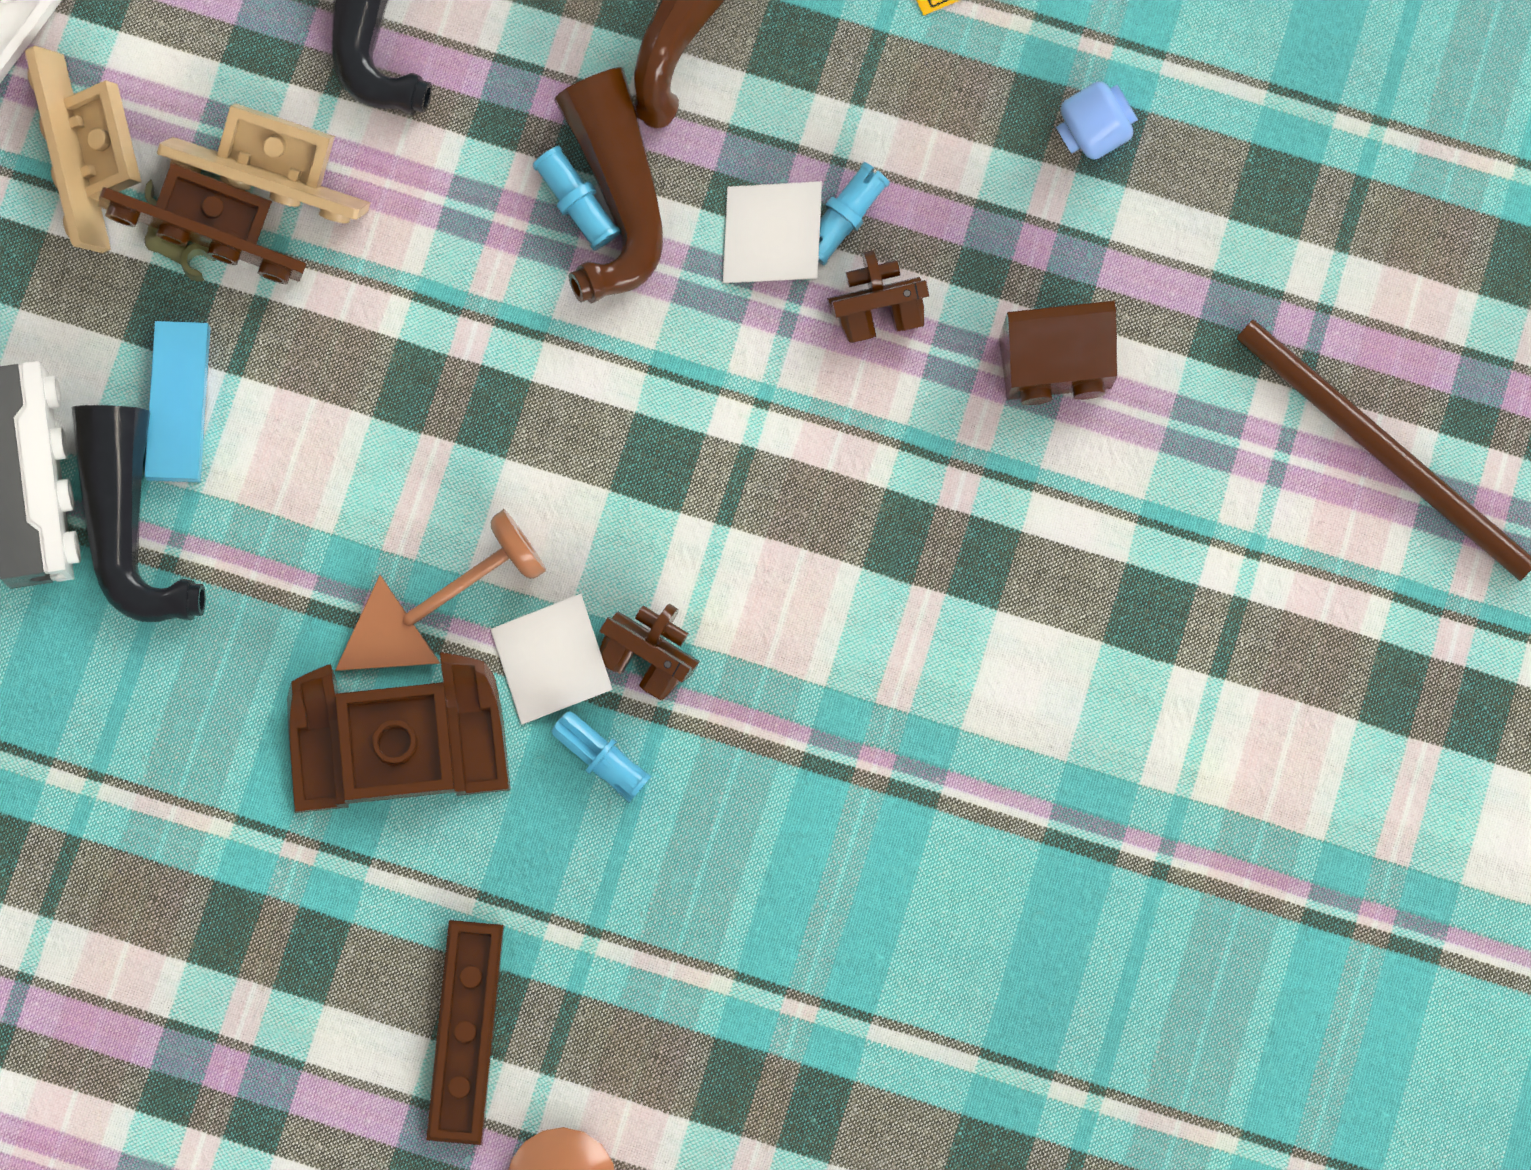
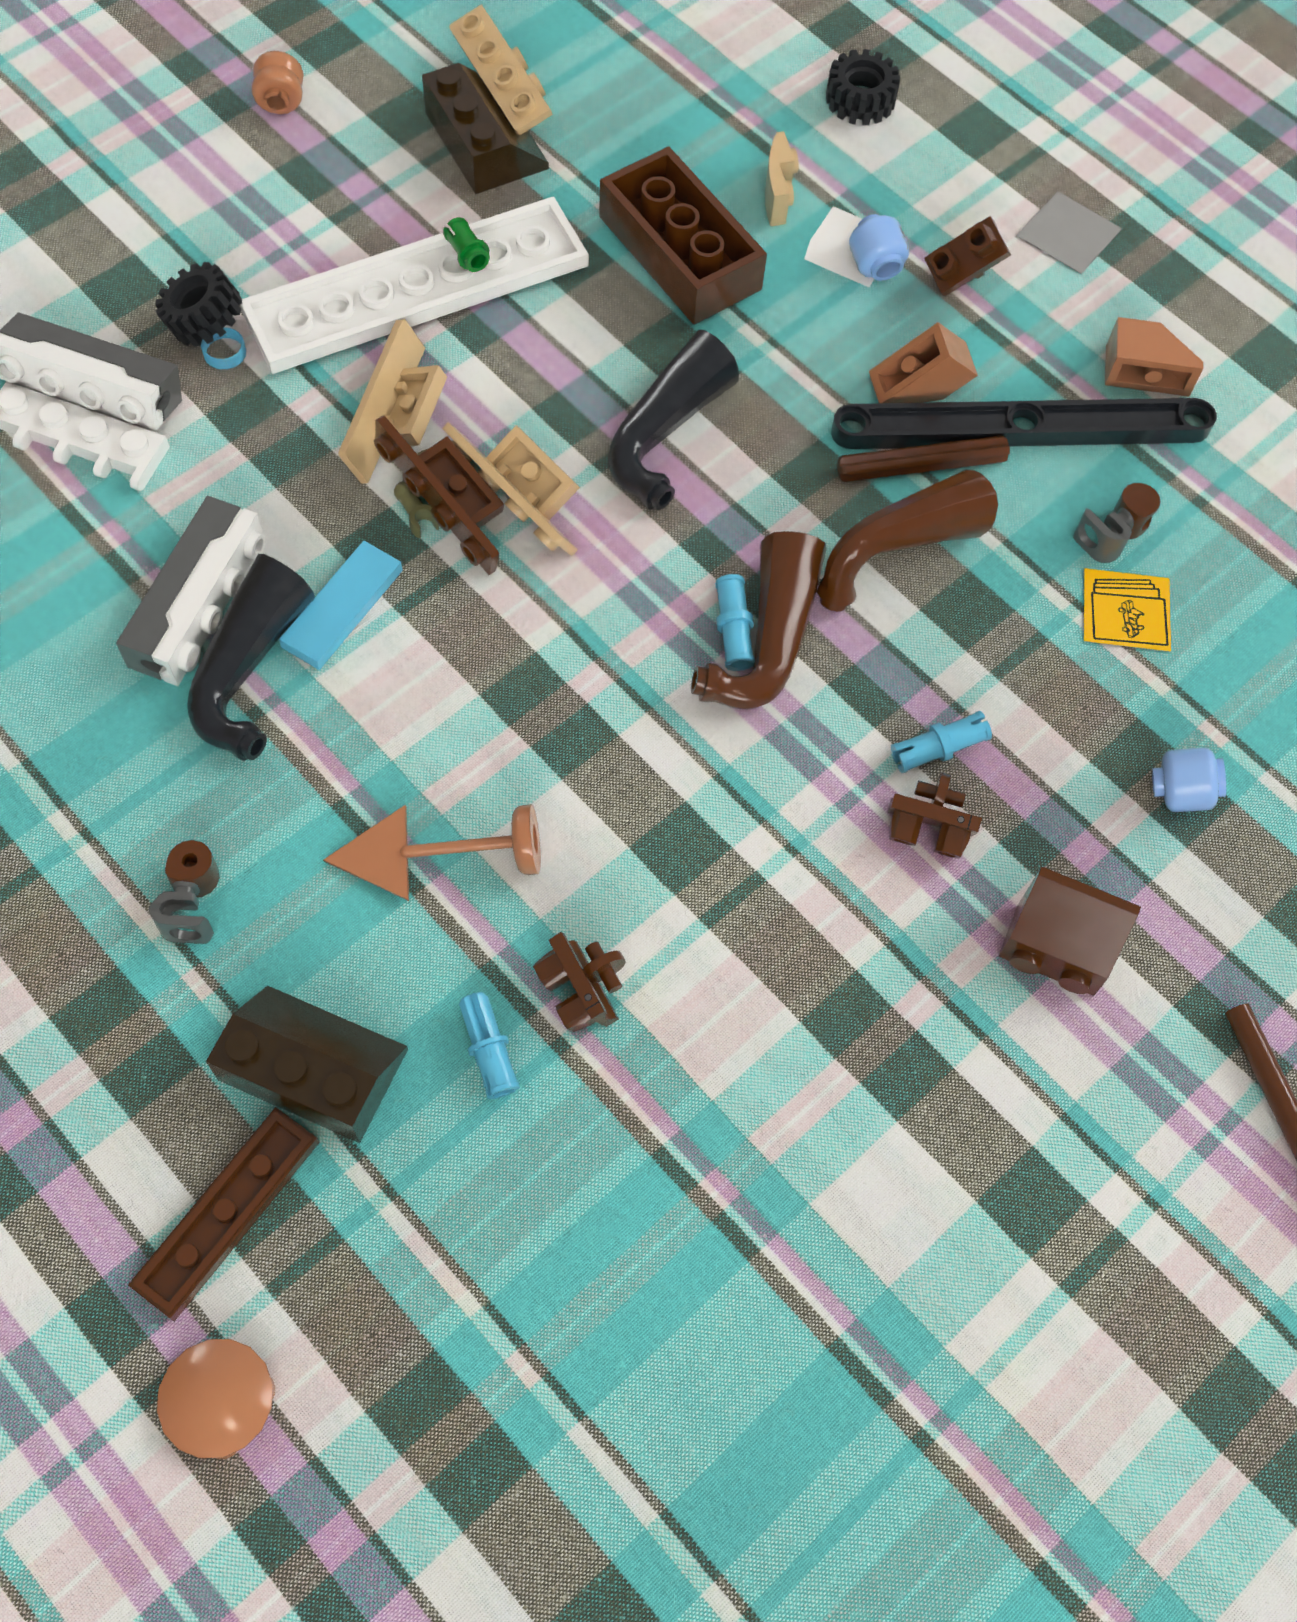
camera: 30 degrees right, 15 degrees down
(225, 758) = (191, 875): none -> leg
(396, 738) = (336, 936): reddish brown piece -> none
(450, 862) = (307, 1061): none -> dark brown slope
(551, 659) = (498, 946): white sticker -> none
(772, 232) = (875, 726): white sticker -> none

